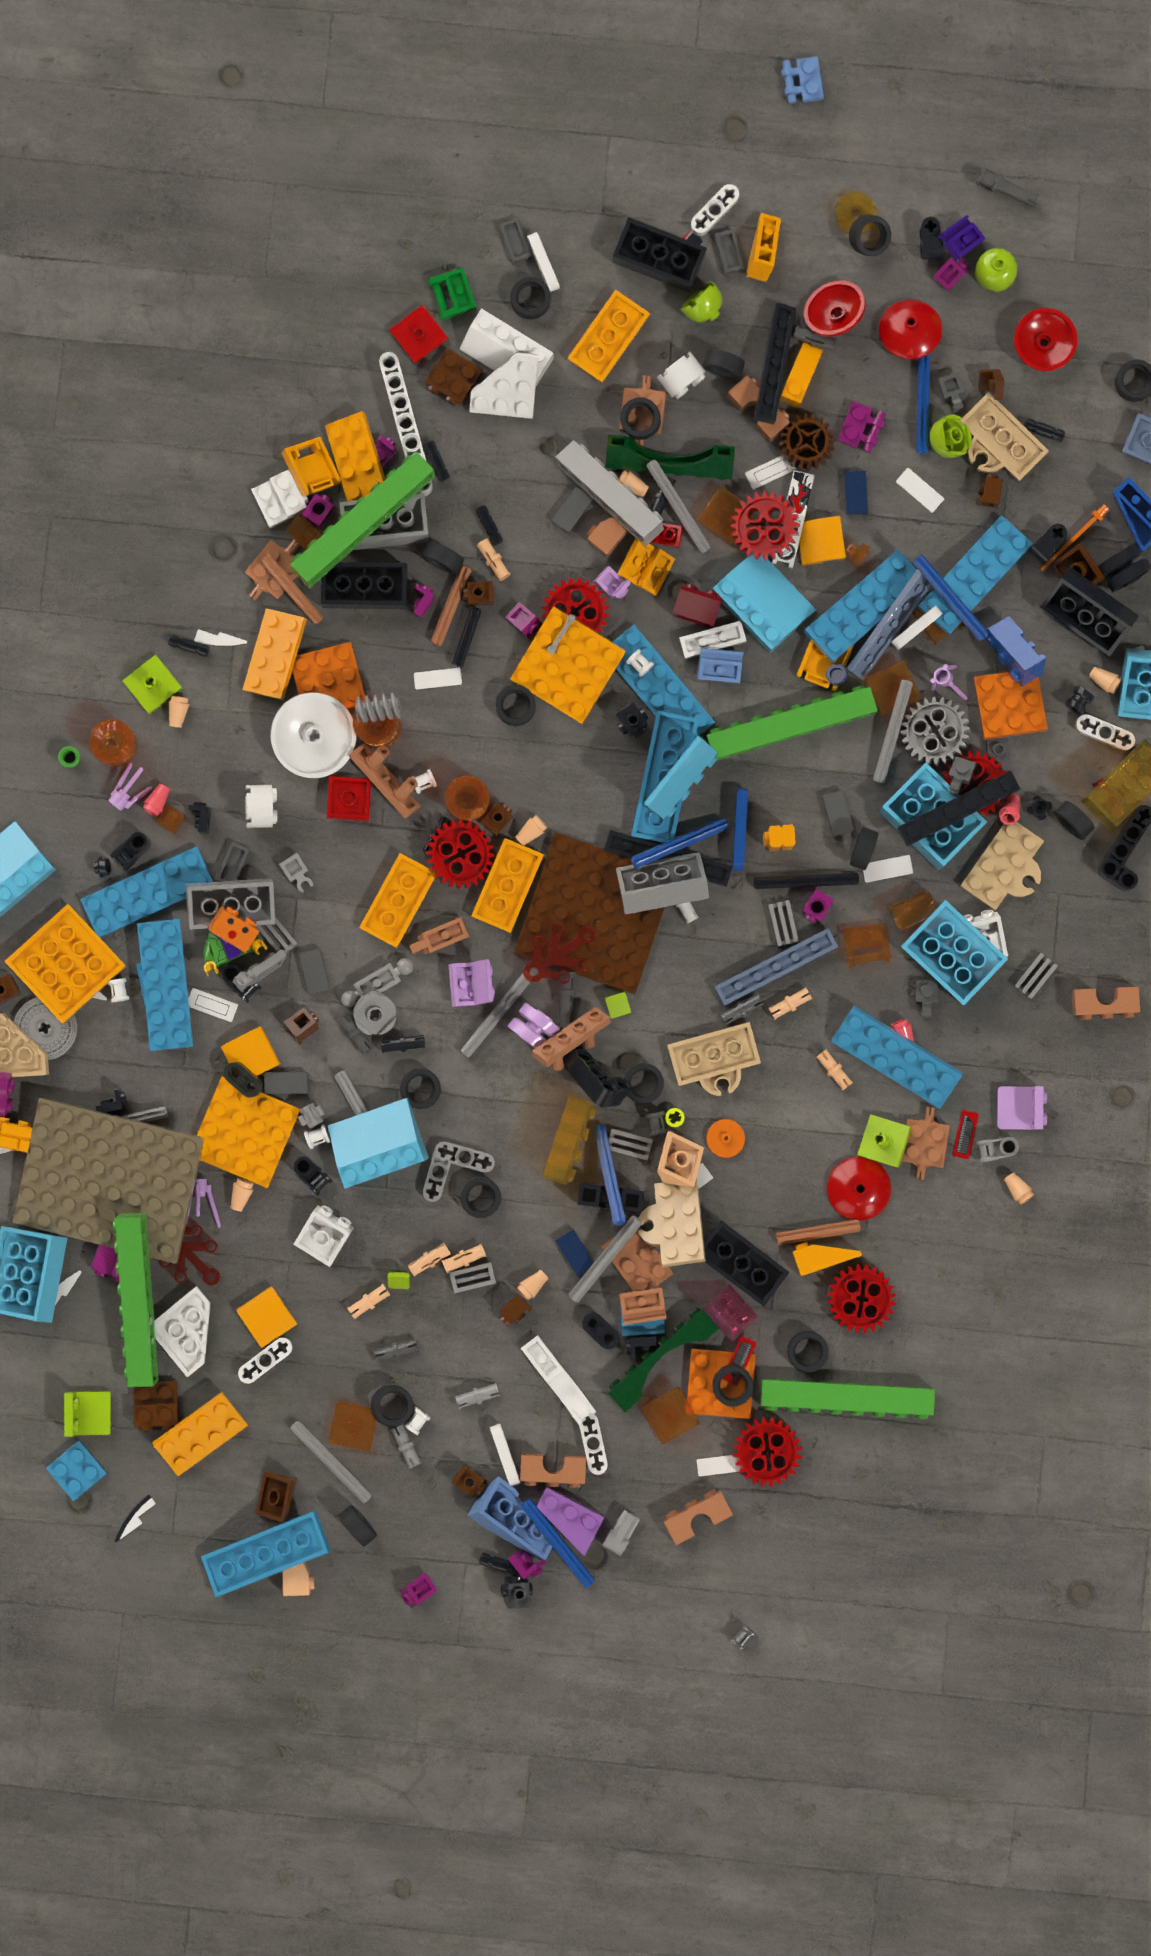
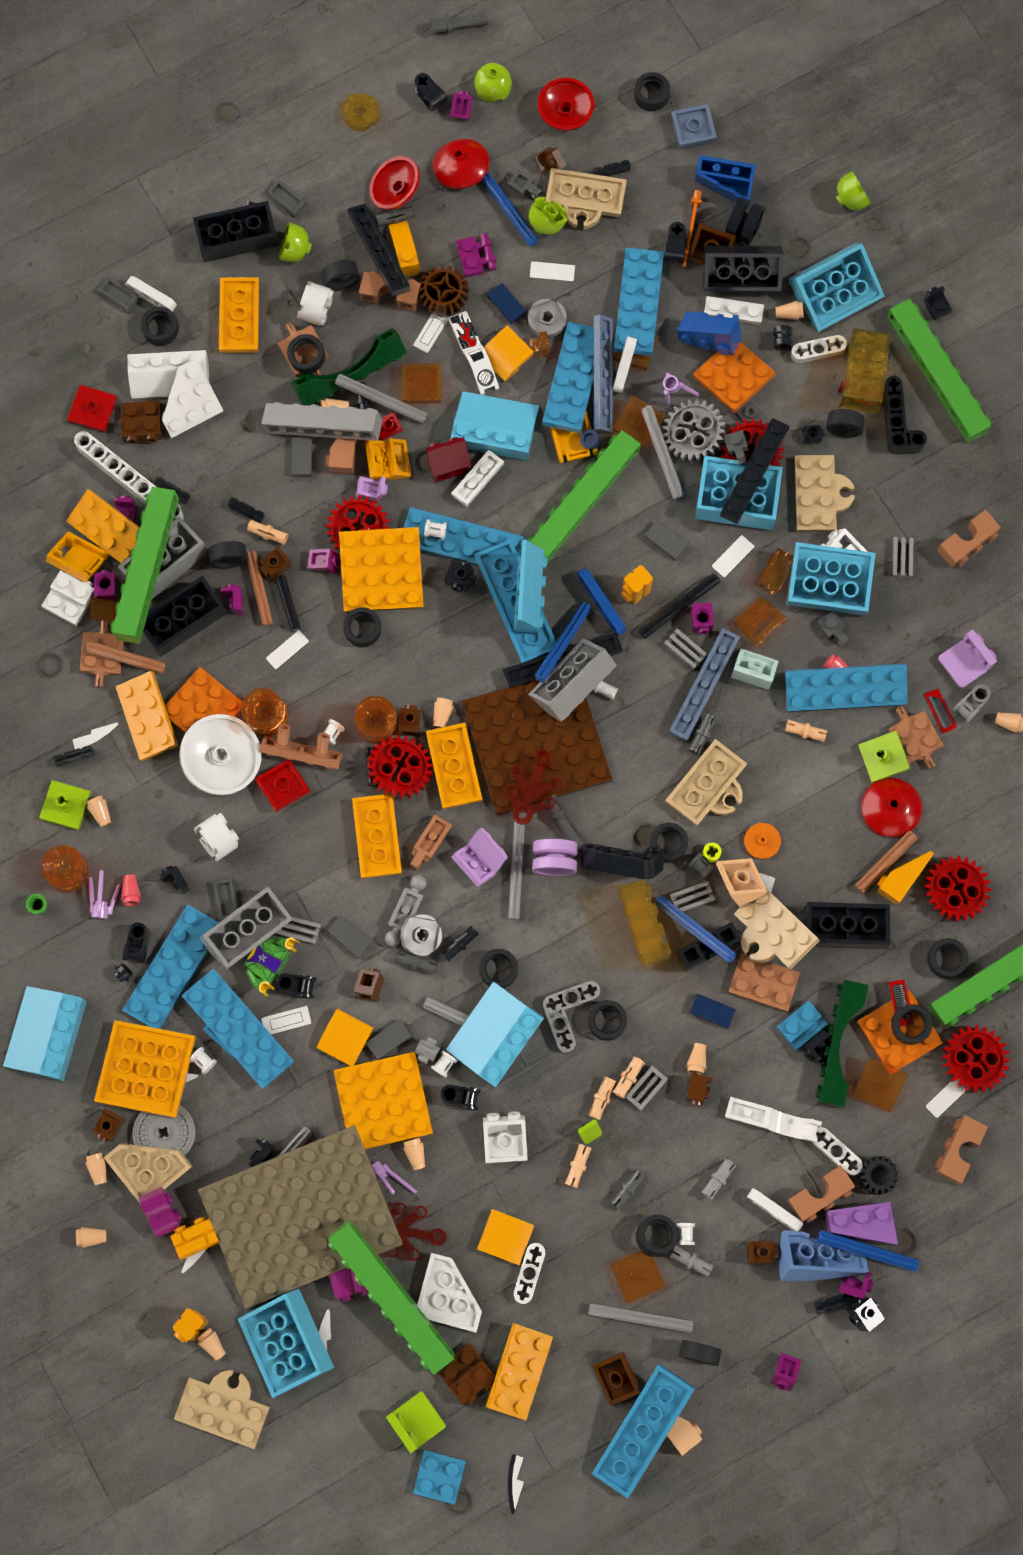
camera: 35 degrees left, 10 degrees down
(170, 819) = (152, 898): clear orange tile -> none
(233, 928) = (262, 943): orange brick -> none
(243, 1080) = (353, 1059): pearl dark grey plate -> none
(259, 971) = (306, 964): light grey hinge -> none
(295, 870) = (279, 868): light grey plate -> none
(378, 708) = (257, 693): light grey piece -> none
(458, 290) = (100, 356): green plate -> none
(552, 648) = (360, 563): light grey hinge -> none
(580, 1031) = (590, 838): nougat plate -> none
(600, 1330) = (776, 1057): black plate -> none
(605, 1258) = (739, 997): light grey axle -> none
(617, 1005) = (605, 797): lime slope -> none
(619, 1536) = (911, 1213): light grey piece -> none
(622, 1498) = (890, 1169): none -> black tyre
(642, 1306) = (796, 1013): nougat plate -> none
(715, 218) = (250, 168): white beam -> none
(720, 665) = (497, 492): medium blue plate -> none
(730, 1312) = (867, 970): clear pink plate -> none
(764, 248) = (310, 177): light orange slope -> none
(766, 506) = (467, 380): red gear -> none
(790, 1003) = (735, 704): light nougat pin -> none
(809, 80) = (257, 42): medium blue plate -> none
(831, 983) = (754, 669): none -> light aqua slope
(864, 848) = (705, 550): black tyre -> none
(884, 236) = (393, 111): black tyre -> none
(892, 527) = (551, 308): none -> light grey plate
(950, 597) = (634, 324): blue axle -> none
(961, 237) = (451, 75): dark purple plate -> none
(990, 491) = (605, 236): reddish brown brick -> none
(1010, 811) = (793, 449): coral cone -> none
(1055, 642) = (748, 312): none -> white plate

